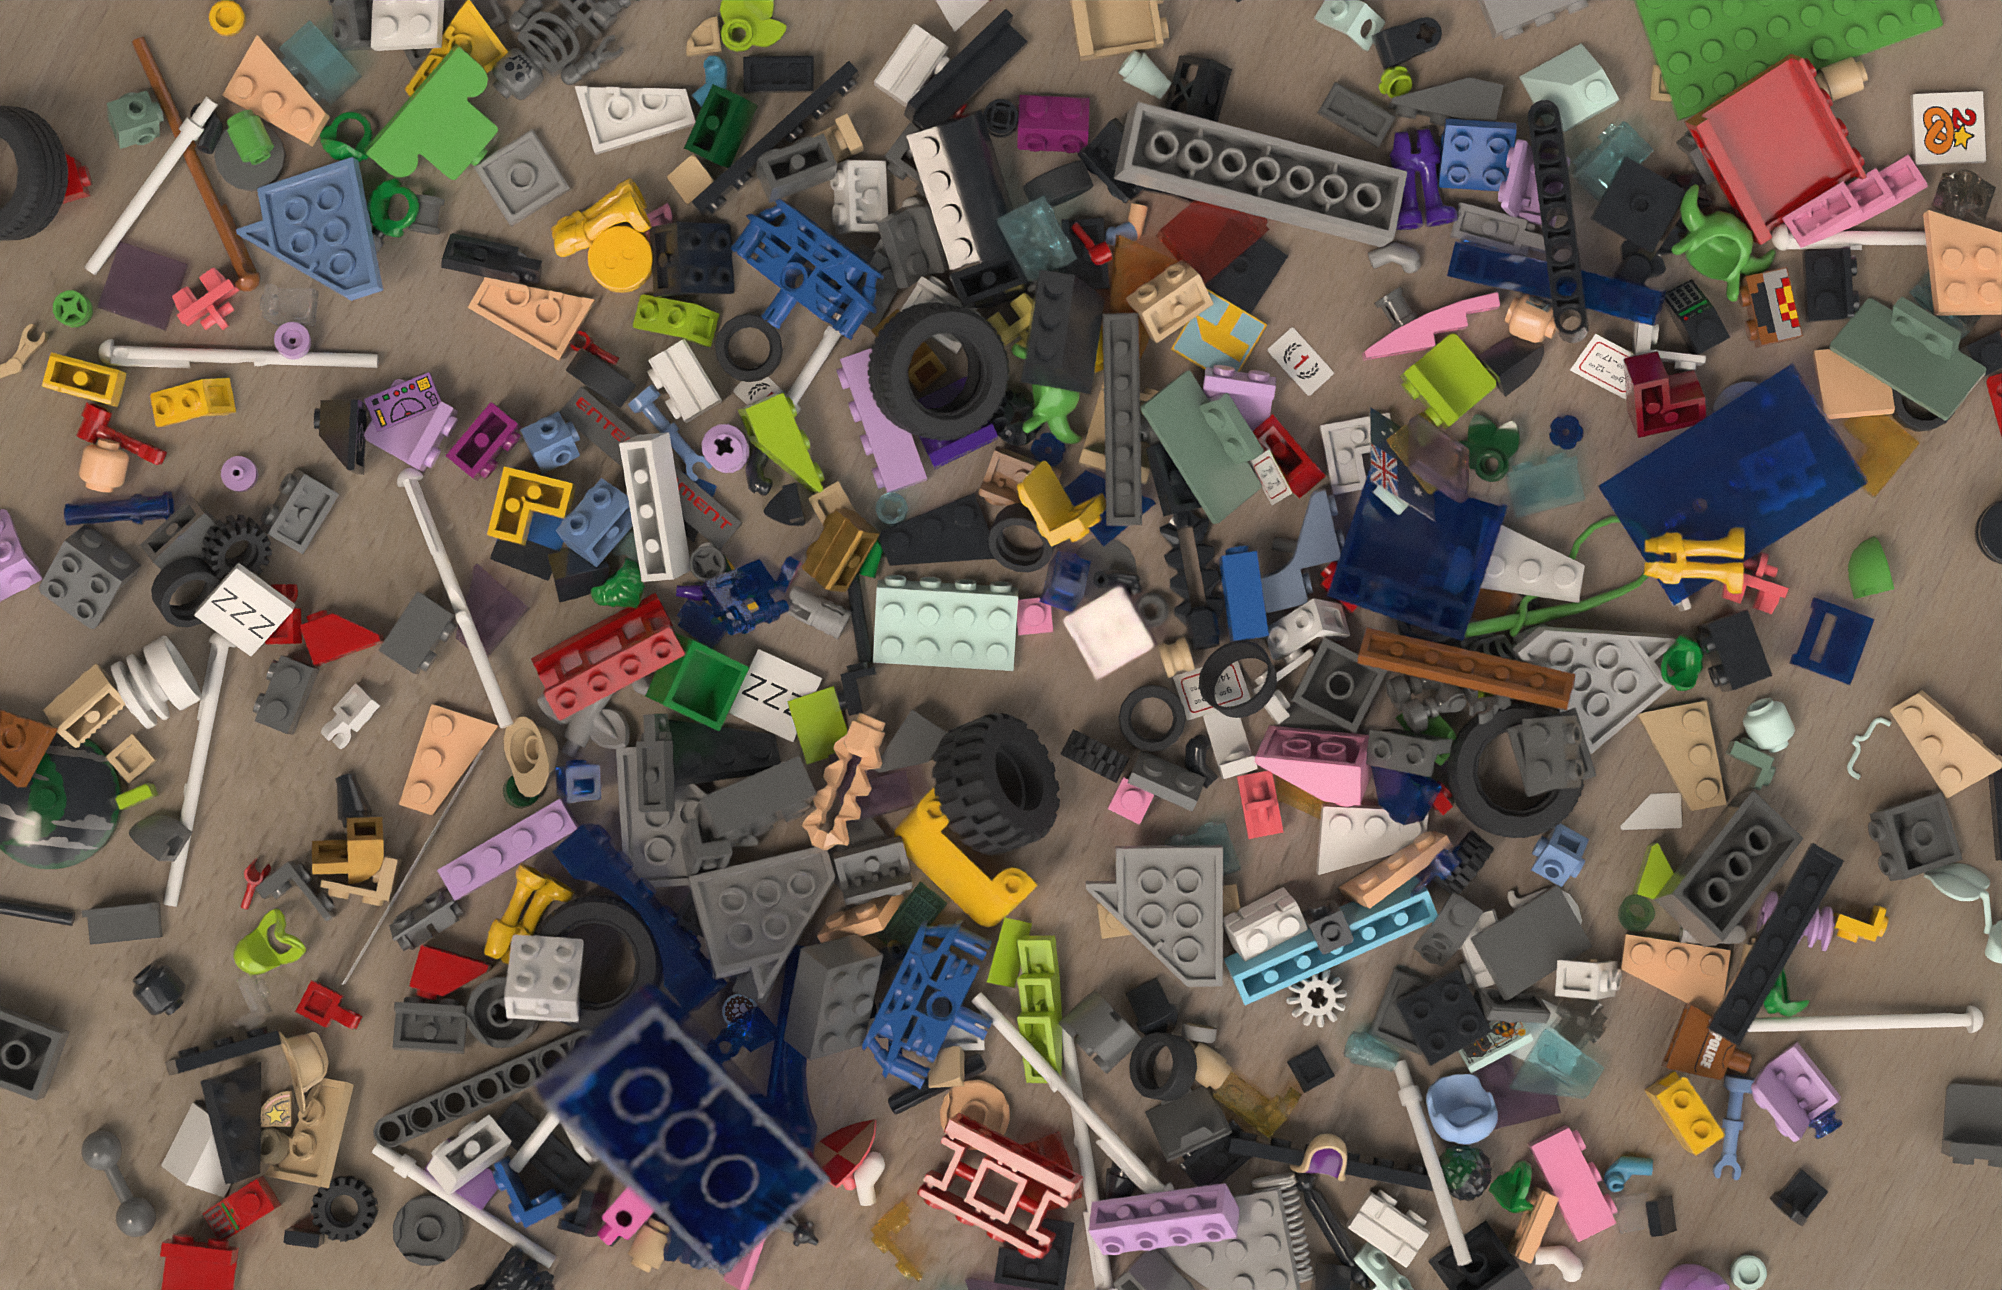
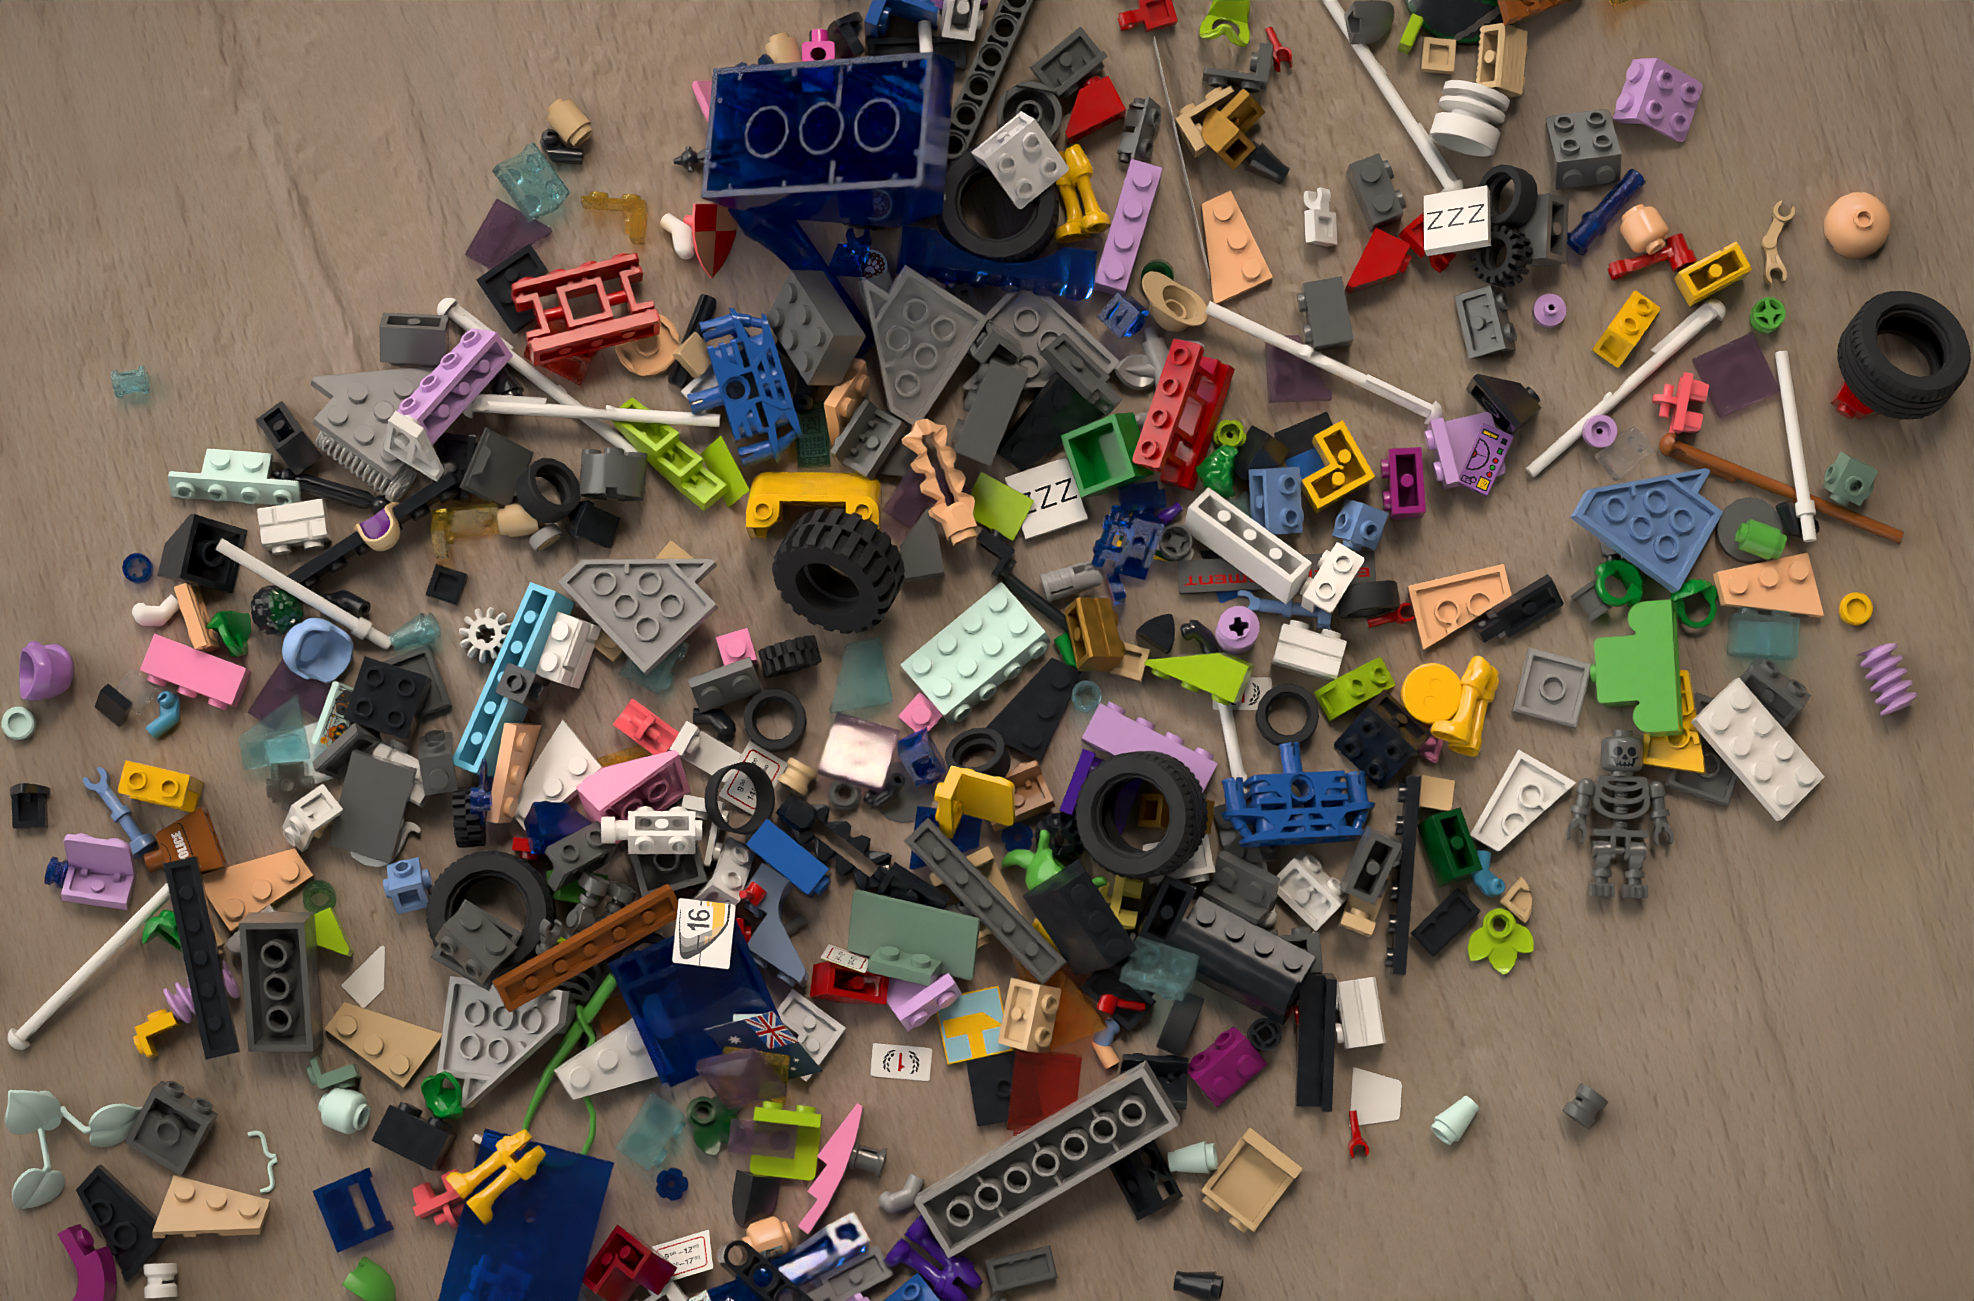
camera: 140 degrees right, 5 degrees down
(583, 620) = (1235, 428): none -> lime plate
(614, 415) = (1332, 579): none -> white bracket
(1053, 687) = (862, 678): none -> clear light blue wing
(1240, 1197) = (411, 445): none -> white wing
(1297, 593) = (753, 893): none -> red hand
(1330, 711) = (654, 831): none -> white brick
(1366, 594) = (704, 933): none -> sticker
(1400, 1127) = (349, 602): none -> black arm
(1465, 398) = (763, 1138): none -> plate

